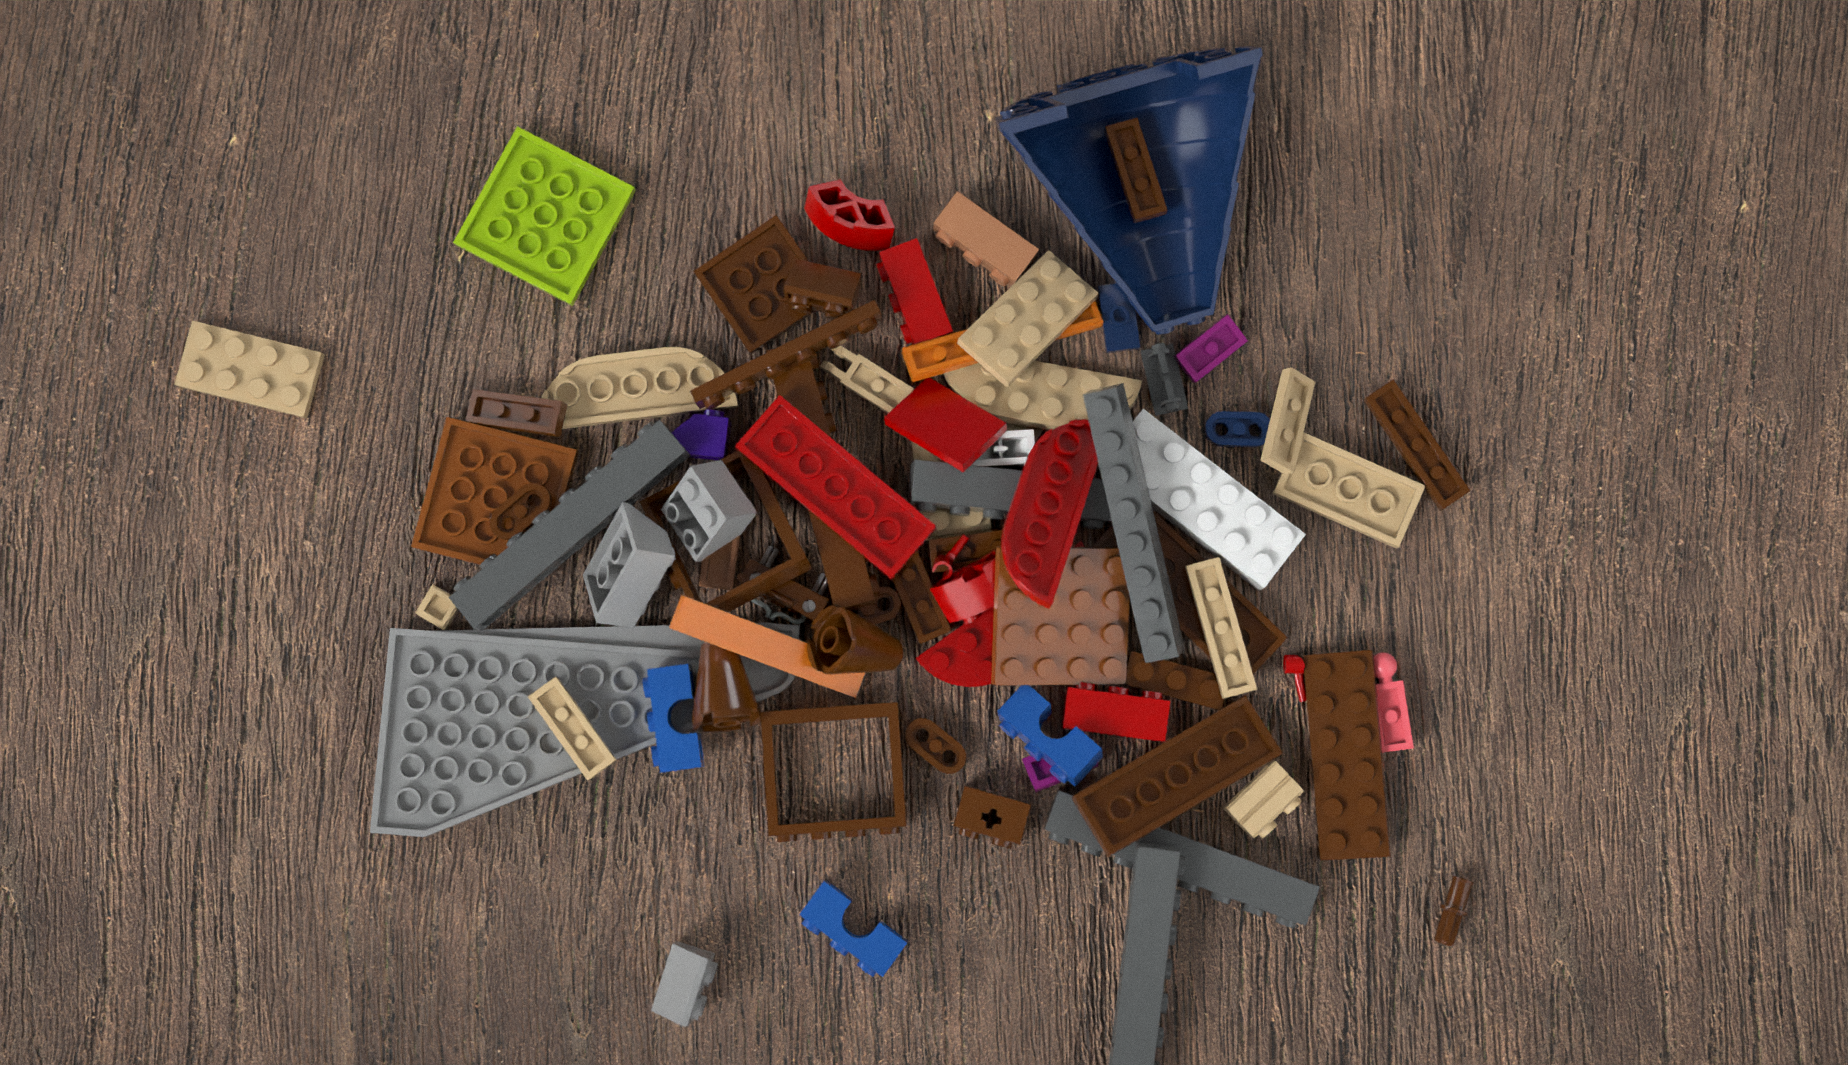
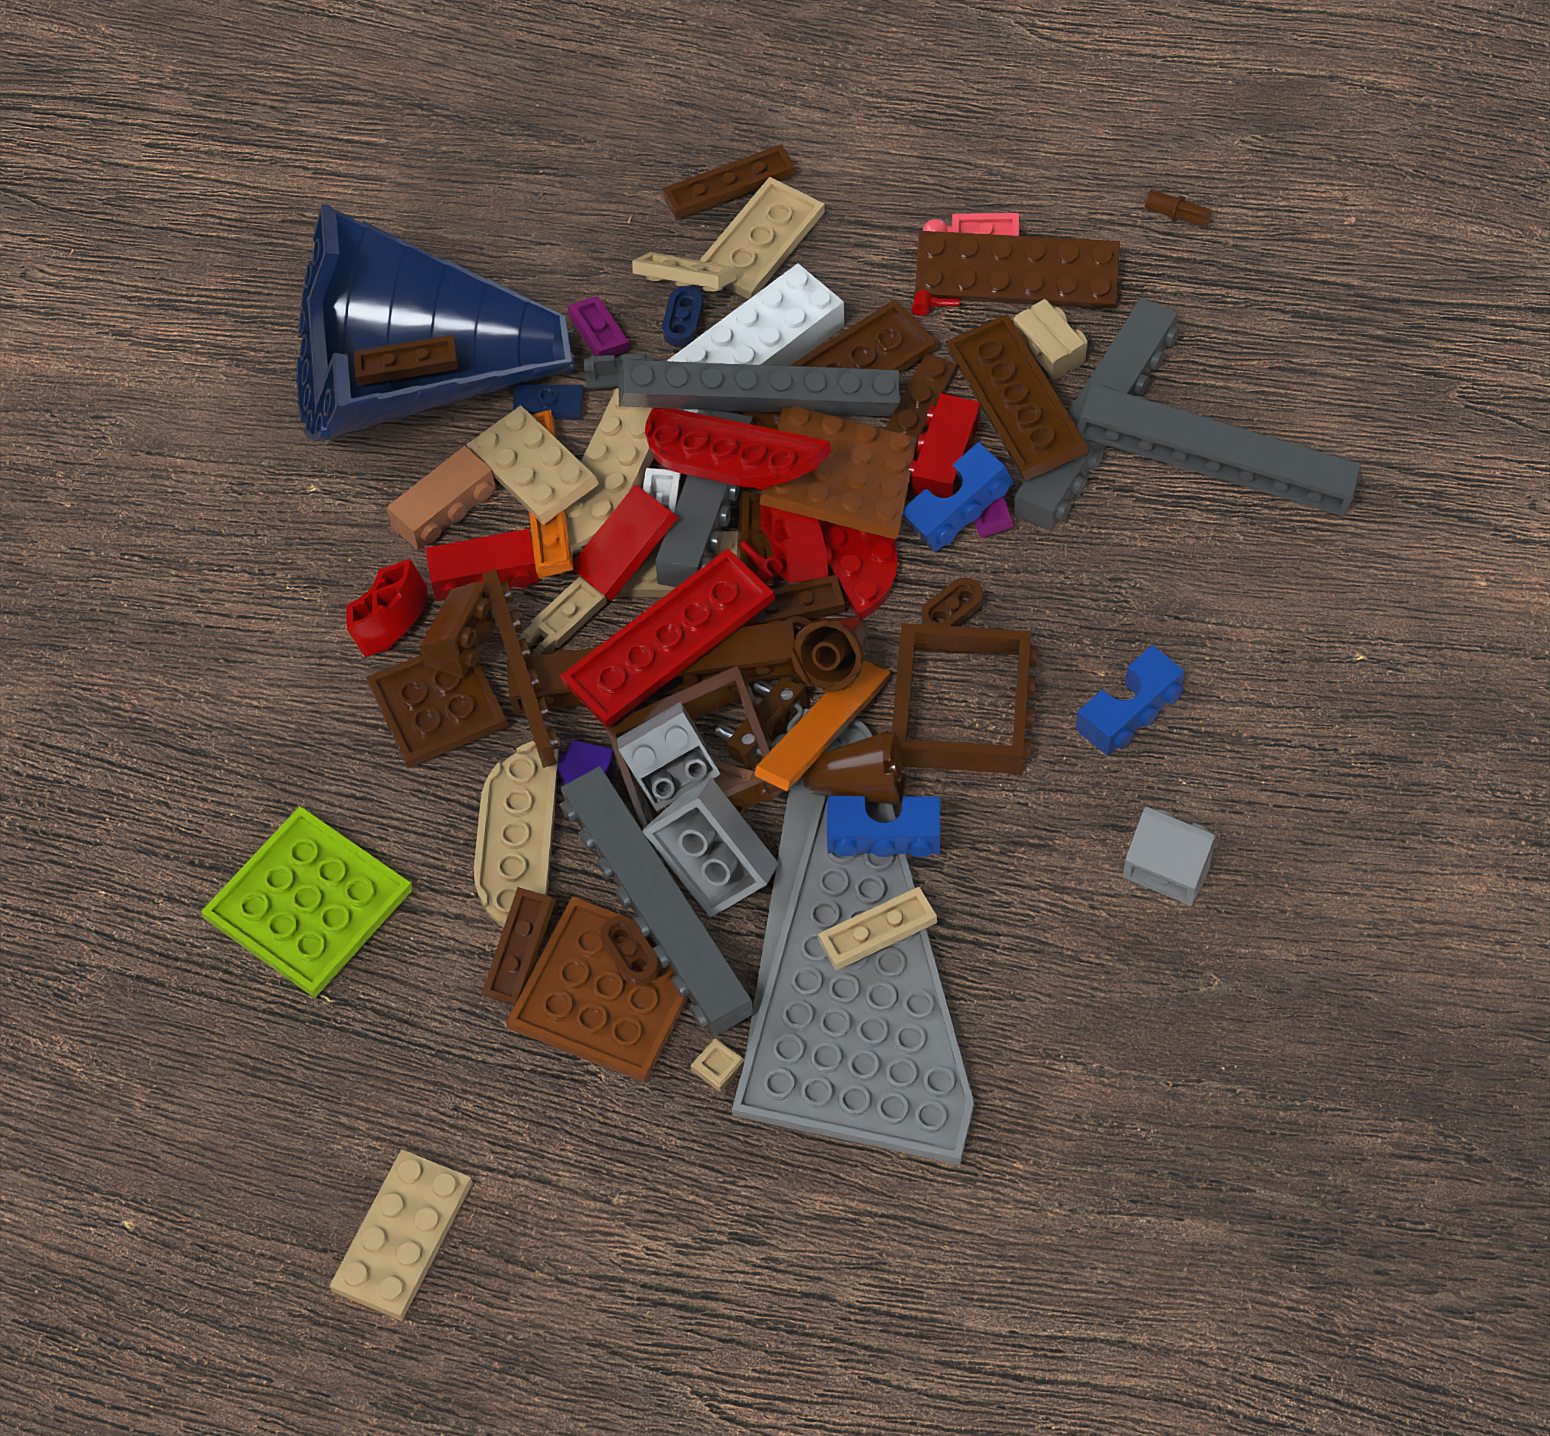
camera: 80 degrees left, 25 degrees down
(1012, 815) = (1031, 564): reddish brown brick -> none
(1220, 627) = (876, 343): tan plate -> none

